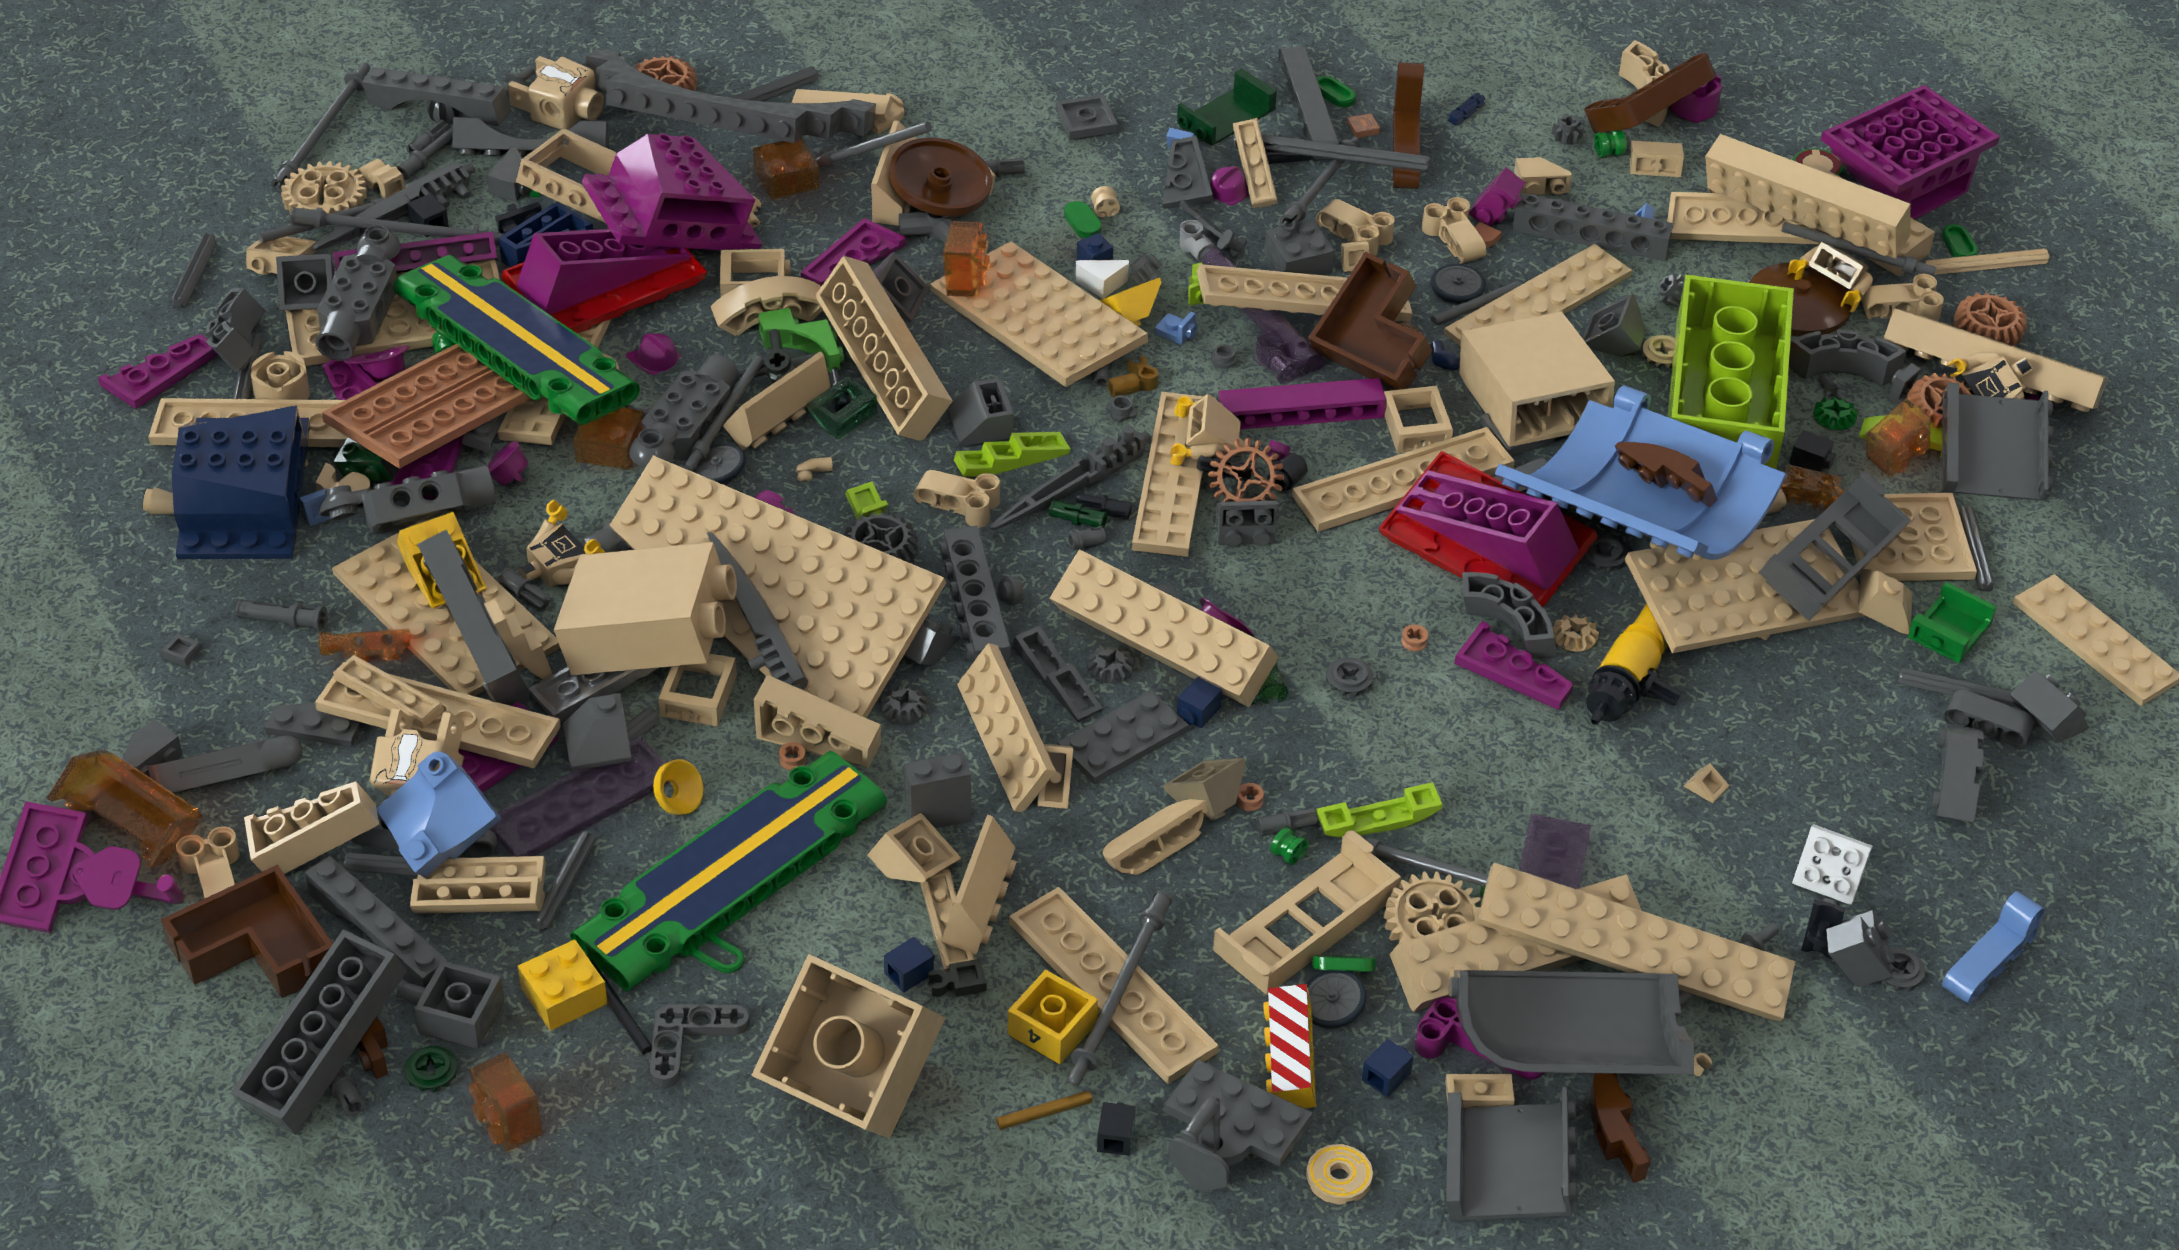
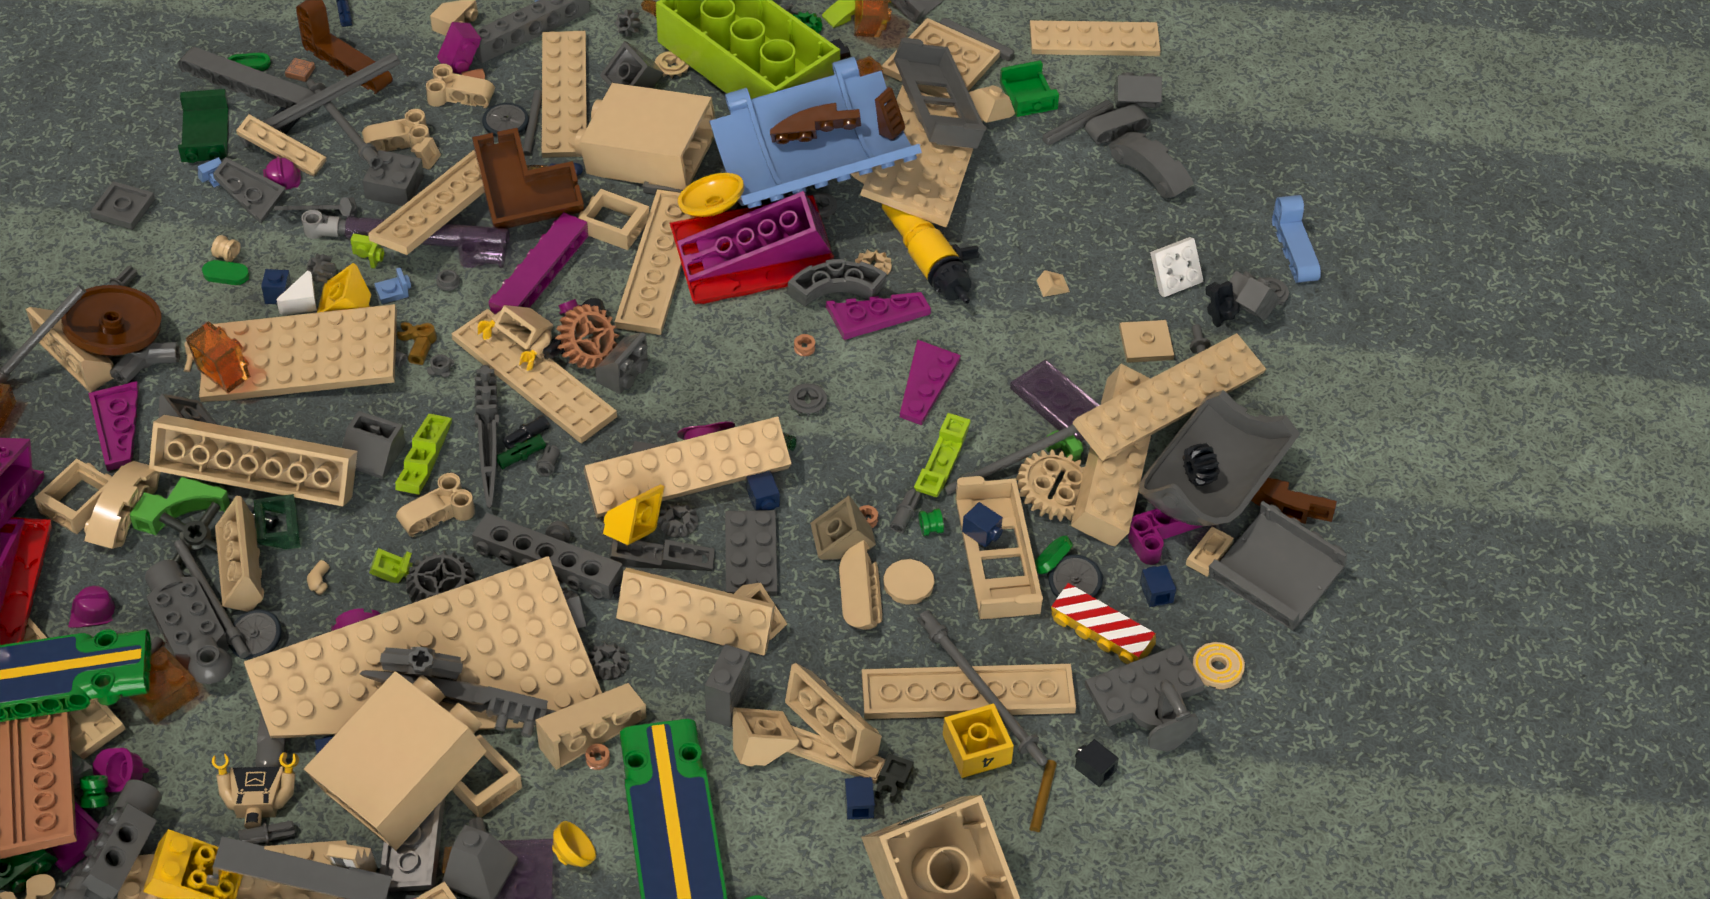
camera: 55 degrees left, 5 degrees up
(473, 457) = (94, 791): none -> green wheel
(750, 562) = (420, 662): none -> dark grey piece
(1070, 624) = (634, 517): none -> yellow slope
(1203, 870) = (908, 581): none -> tan tile
(1320, 883) = (982, 524): none -> dark blue brick
(1477, 749) = (926, 380): none -> magenta wing
(1487, 453) = (711, 195): none -> yellow dish
(1558, 1007) = (1201, 464): none -> black gear
(1713, 898) = (1146, 341): none -> tan plate
(1732, 526) = (889, 116): none -> reddish brown slope

